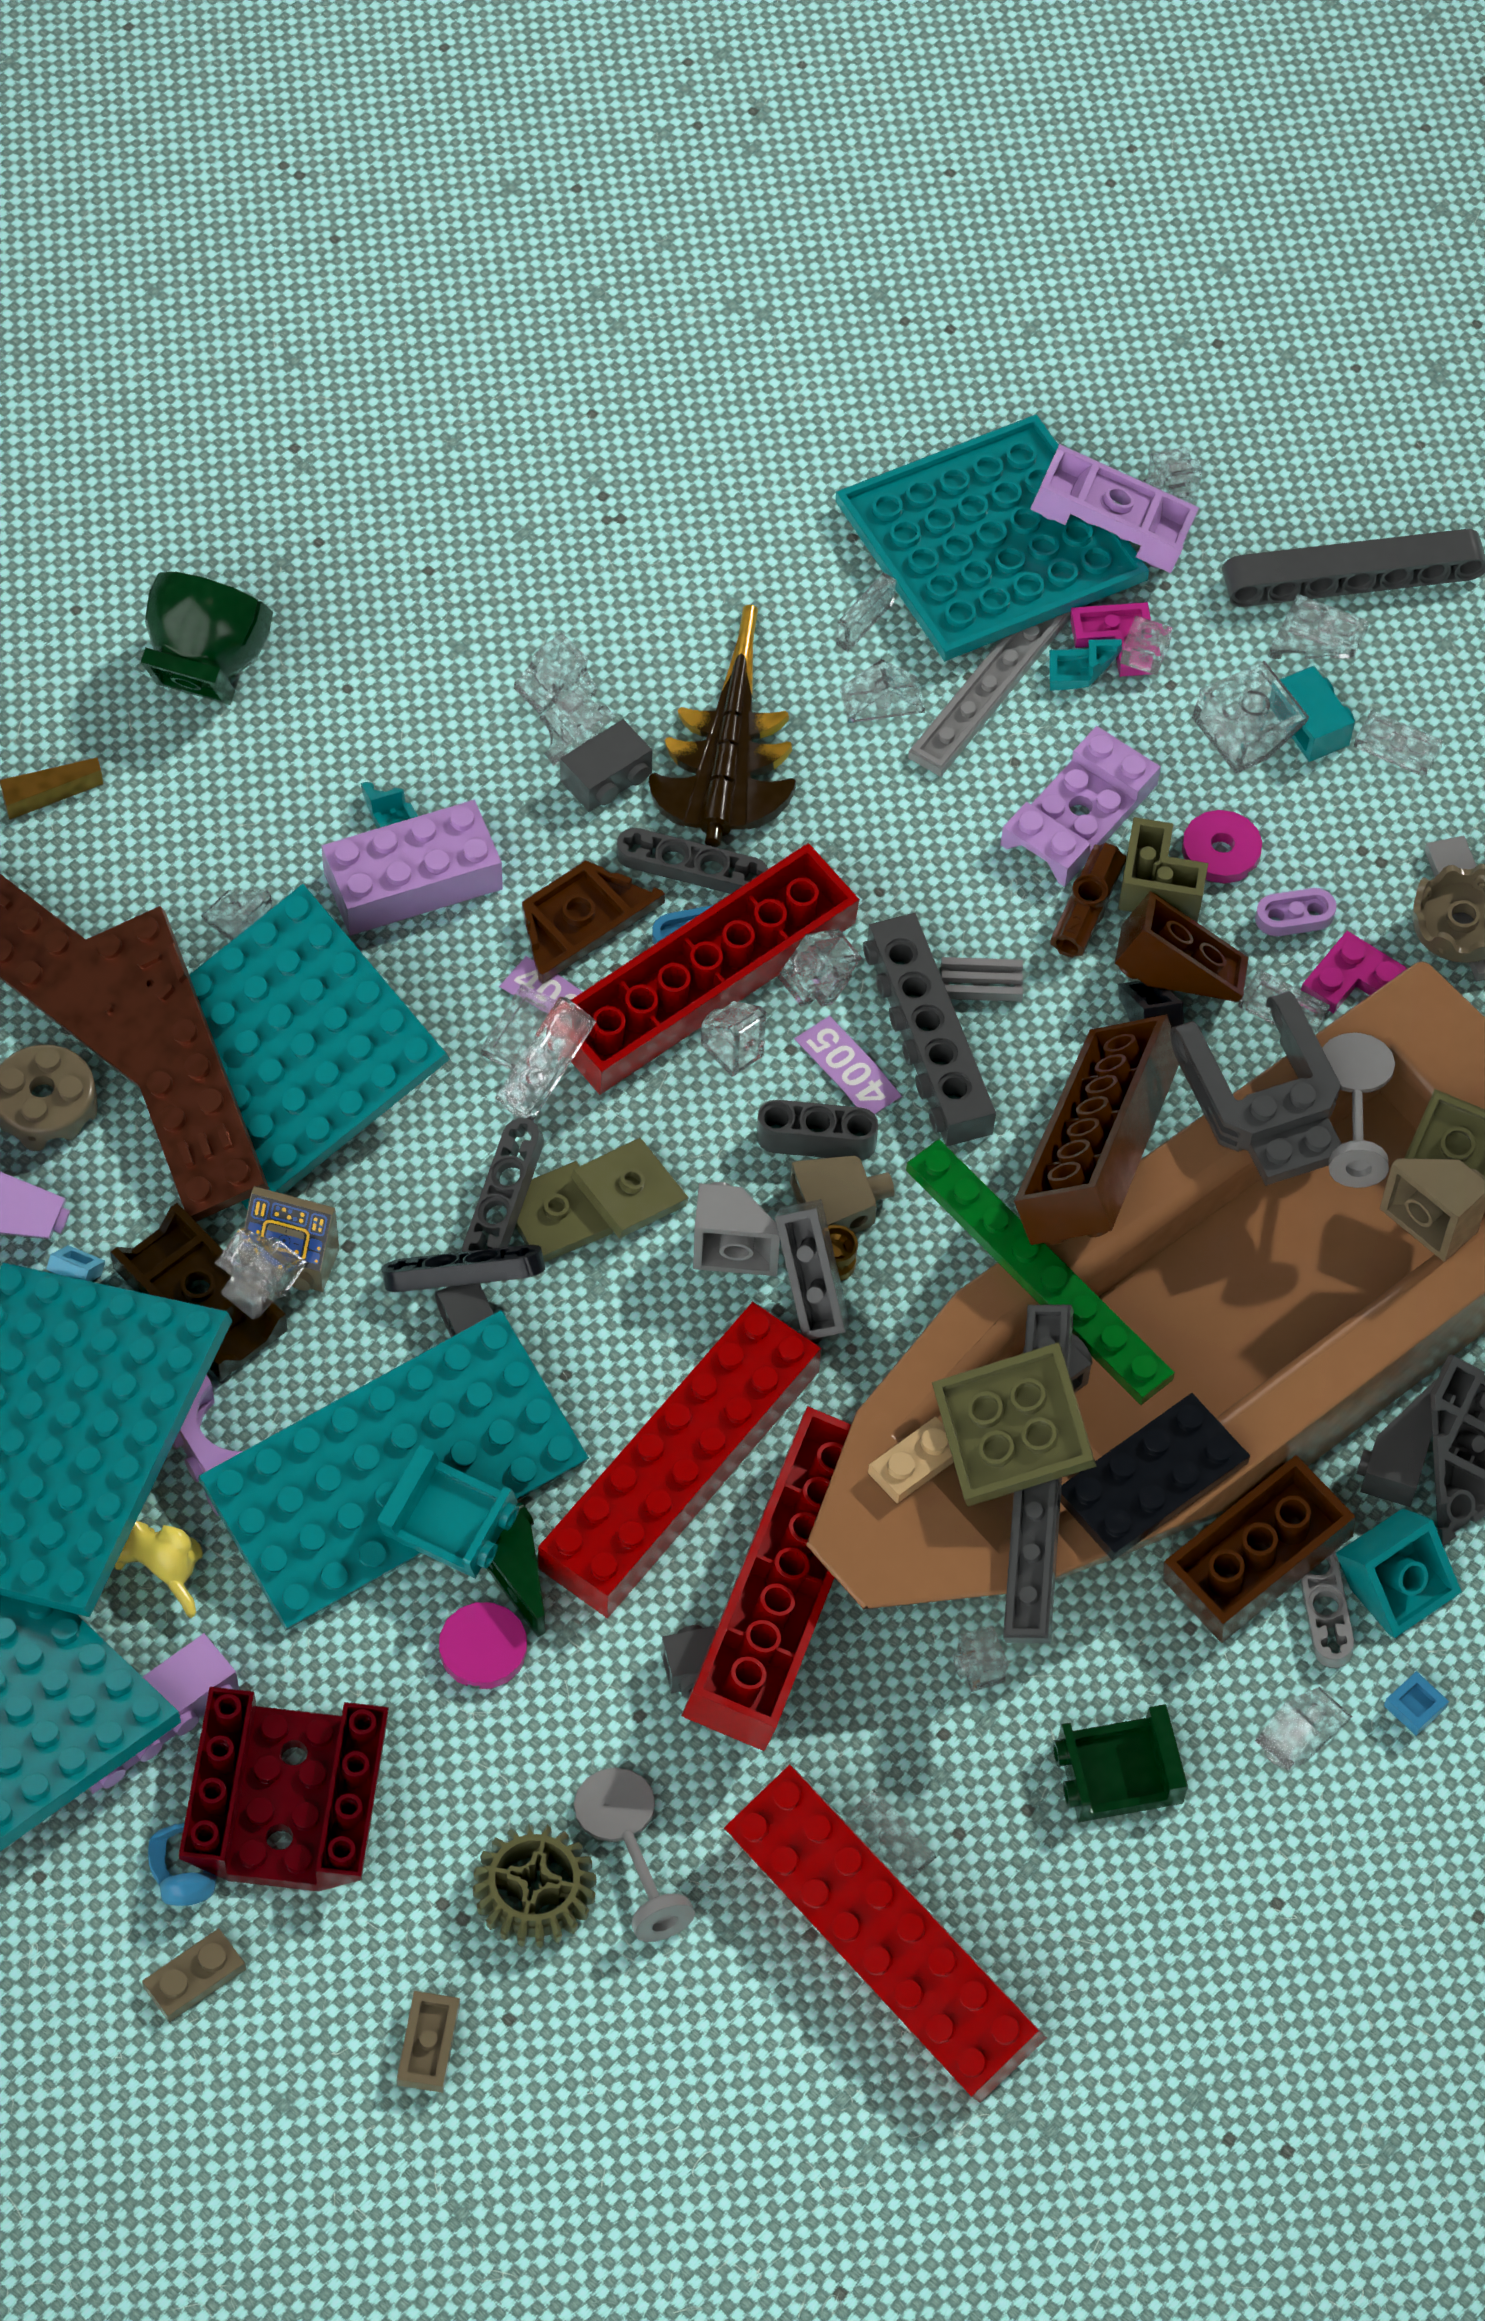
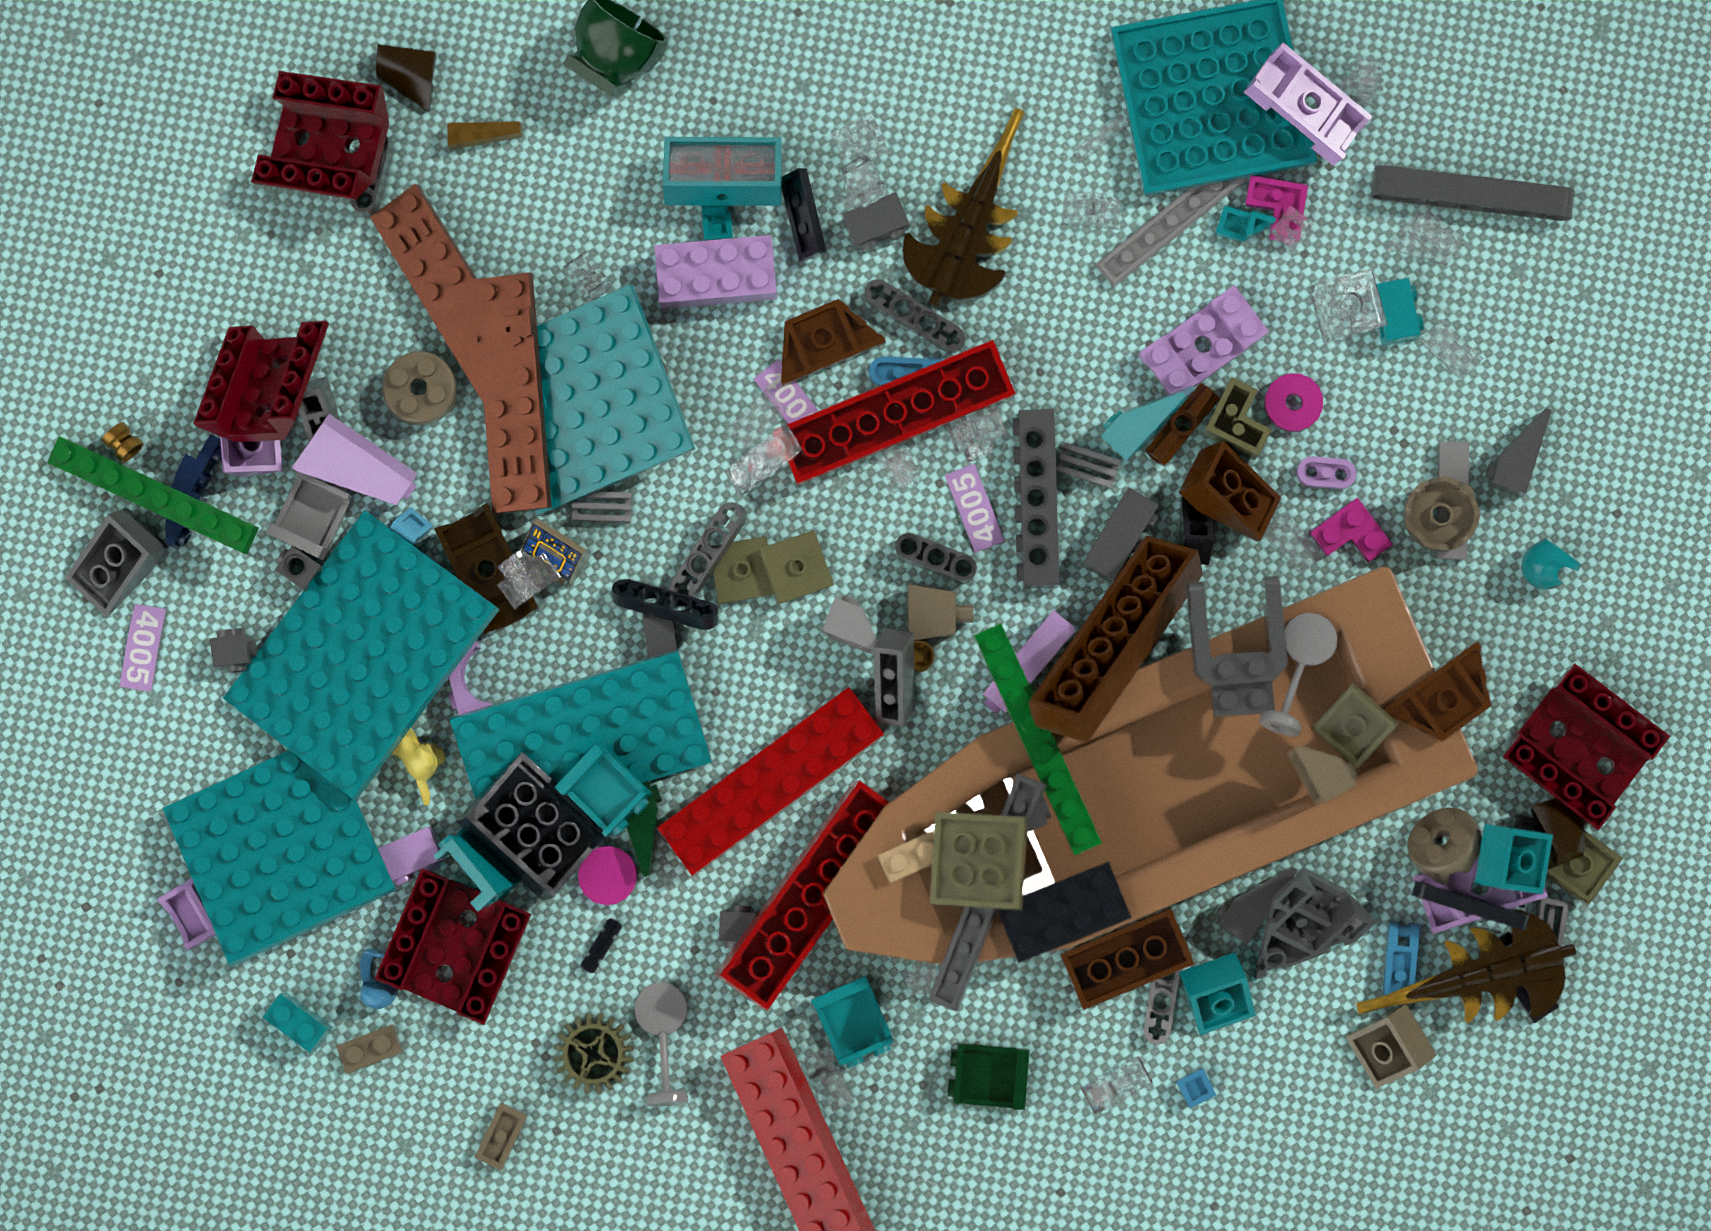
camera: 25 degrees right, 25 degrees up
(75, 1958) = (297, 1022): none -> teal brick
(328, 1683) = (481, 866): none -> teal panel
(339, 1174) = (576, 505): none -> light grey tile
(356, 1596) = (531, 827): none -> black slope
(387, 746) = (722, 171): none -> brick
(501, 1740) = (601, 945): none -> black axle
(507, 779) = (803, 214): none -> black plate
(897, 1743) = (853, 1022): none -> teal panel
(1003, 1176) = (1035, 655): none -> lavender slope
(1037, 891) = (1133, 428): none -> teal slope
(1055, 1042) = (1121, 535): none -> dark grey brick

